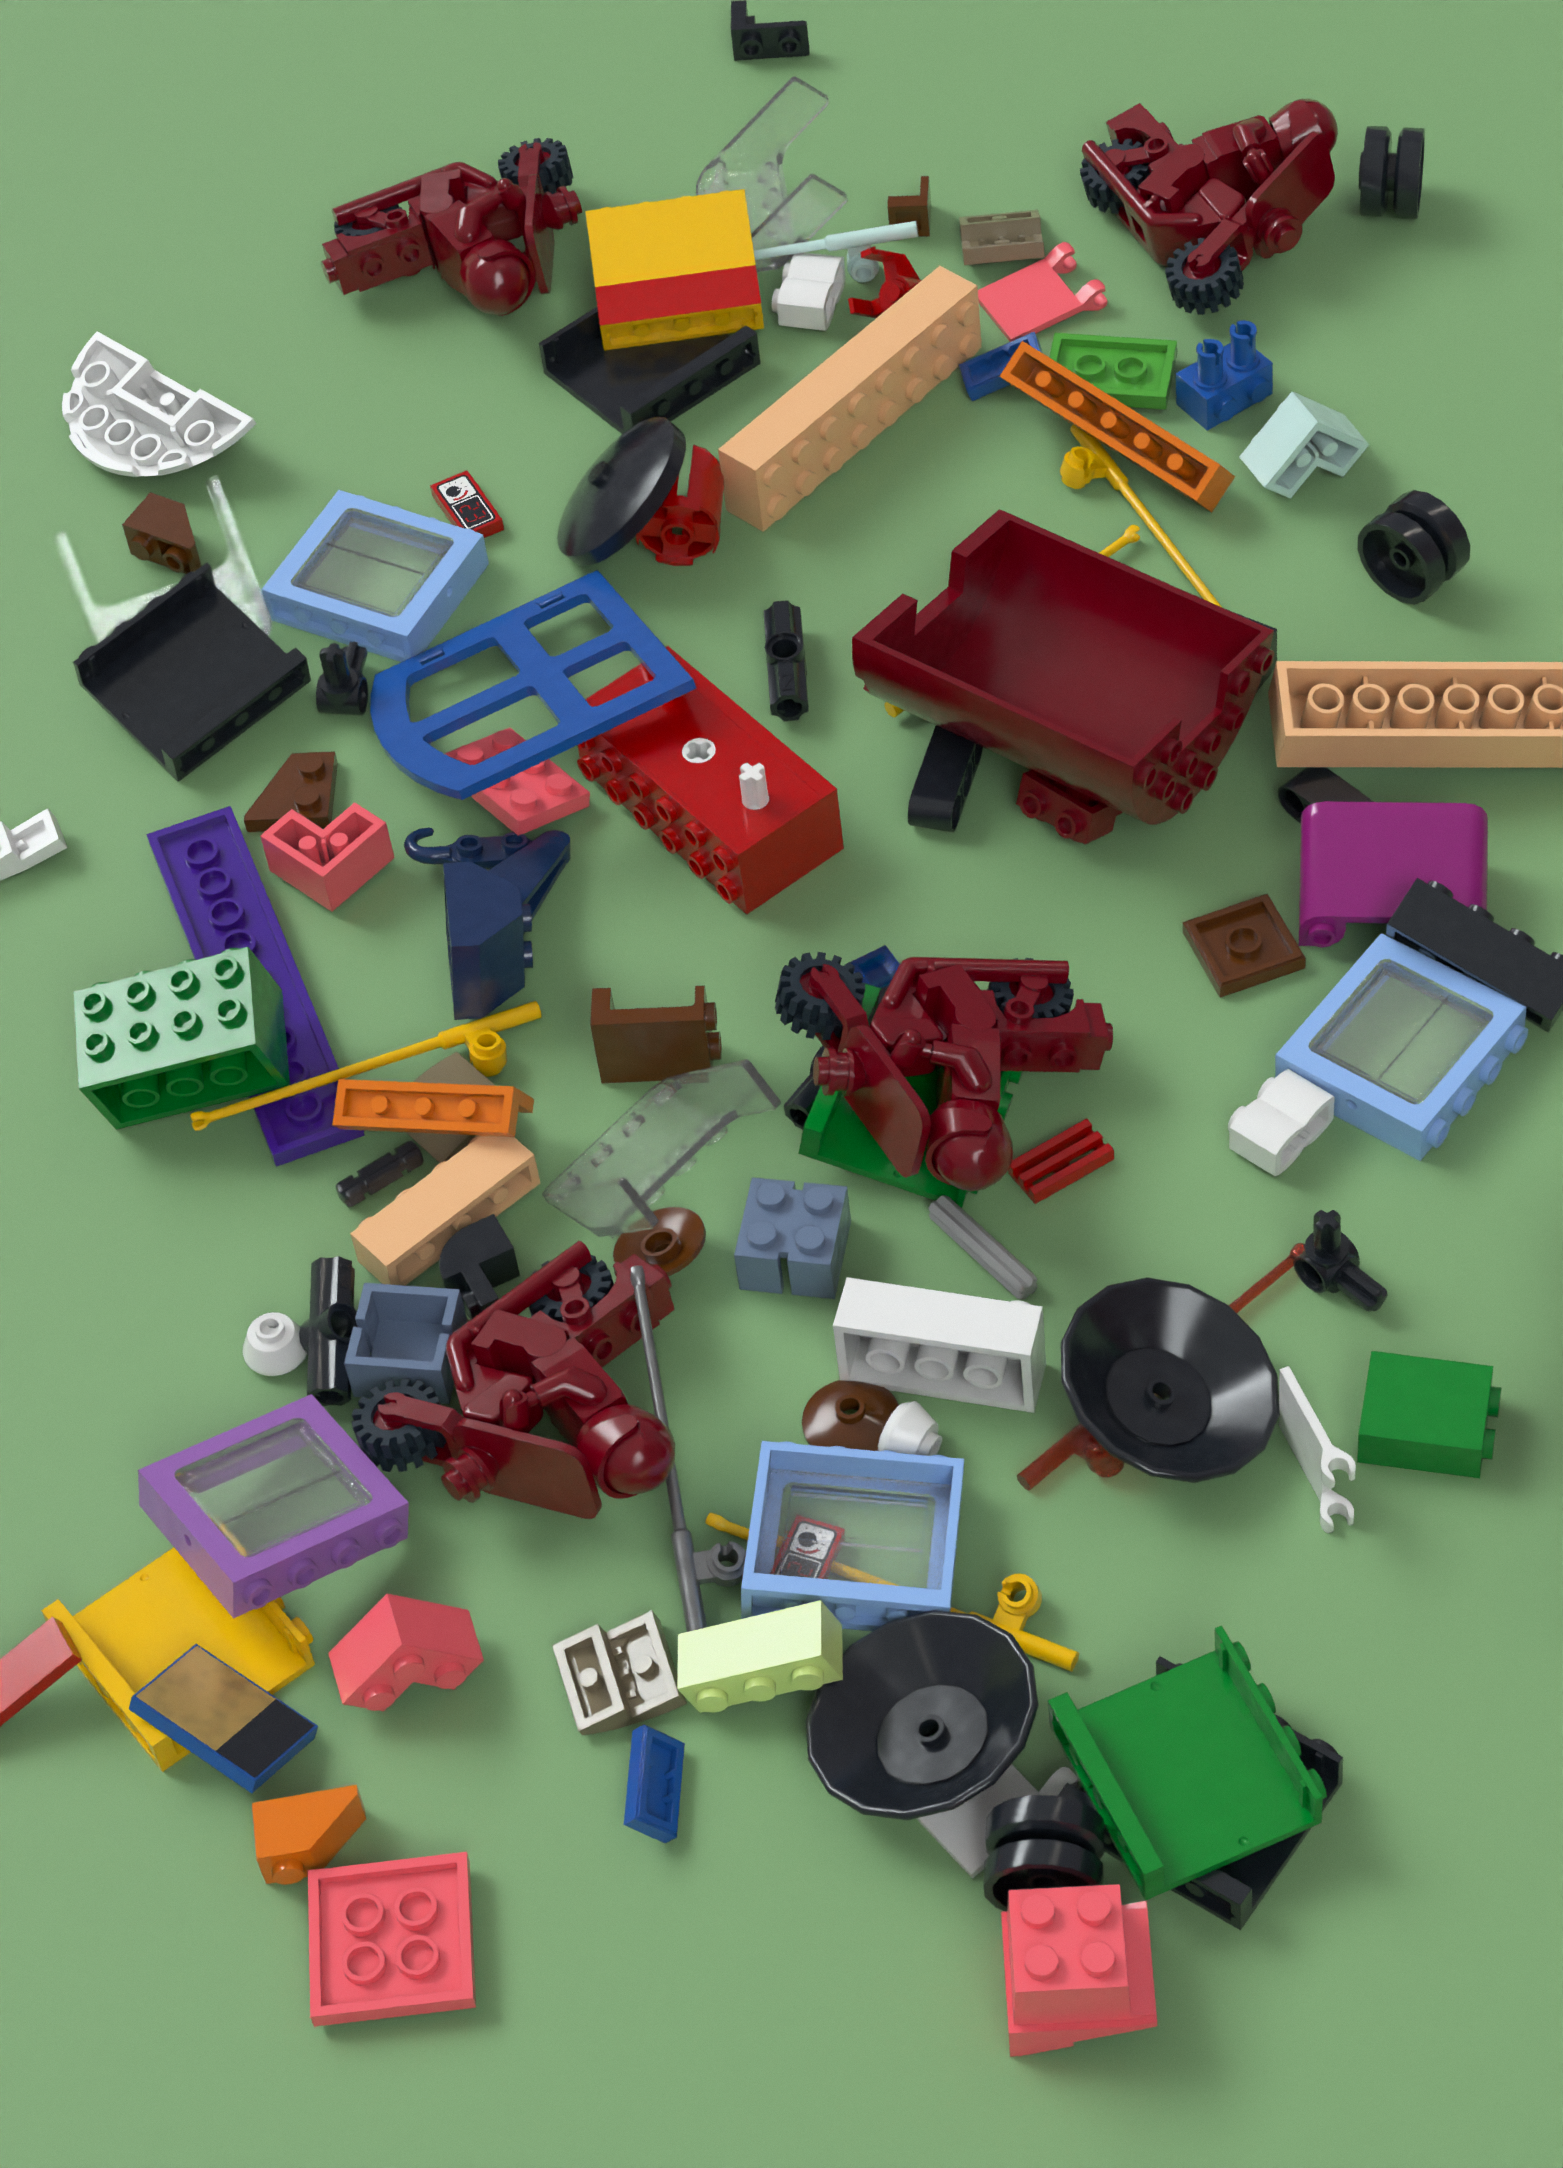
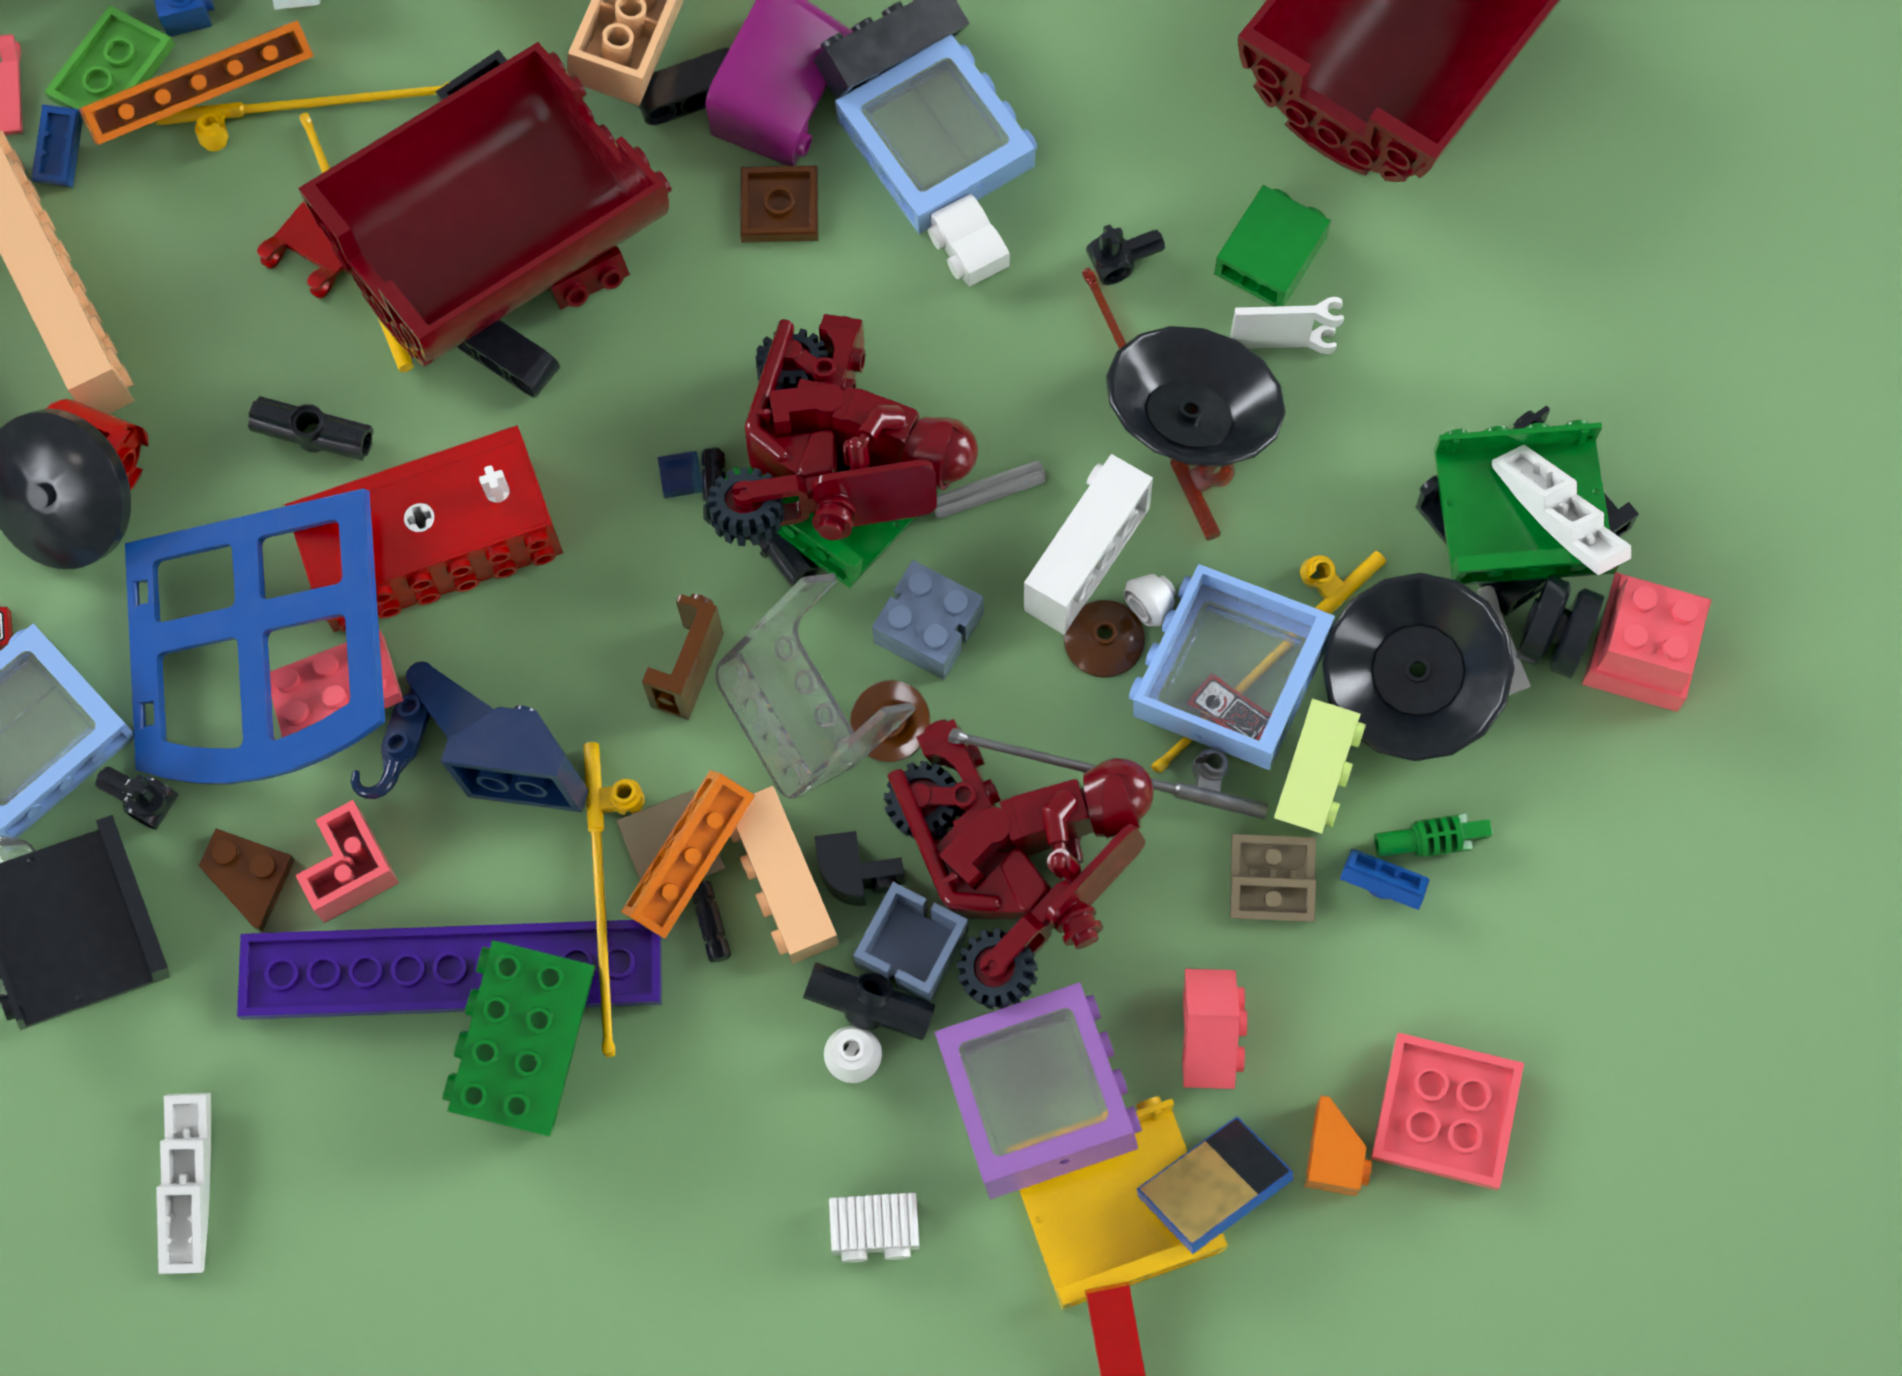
camera: 75 degrees left, 20 degrees up
(89, 1424) = (874, 1226): none -> white brick
(728, 1821) = (1433, 837): none -> green hinge
(1056, 1157) = (923, 377): red tile -> none
(1181, 1788) = (1554, 503): none -> white slope

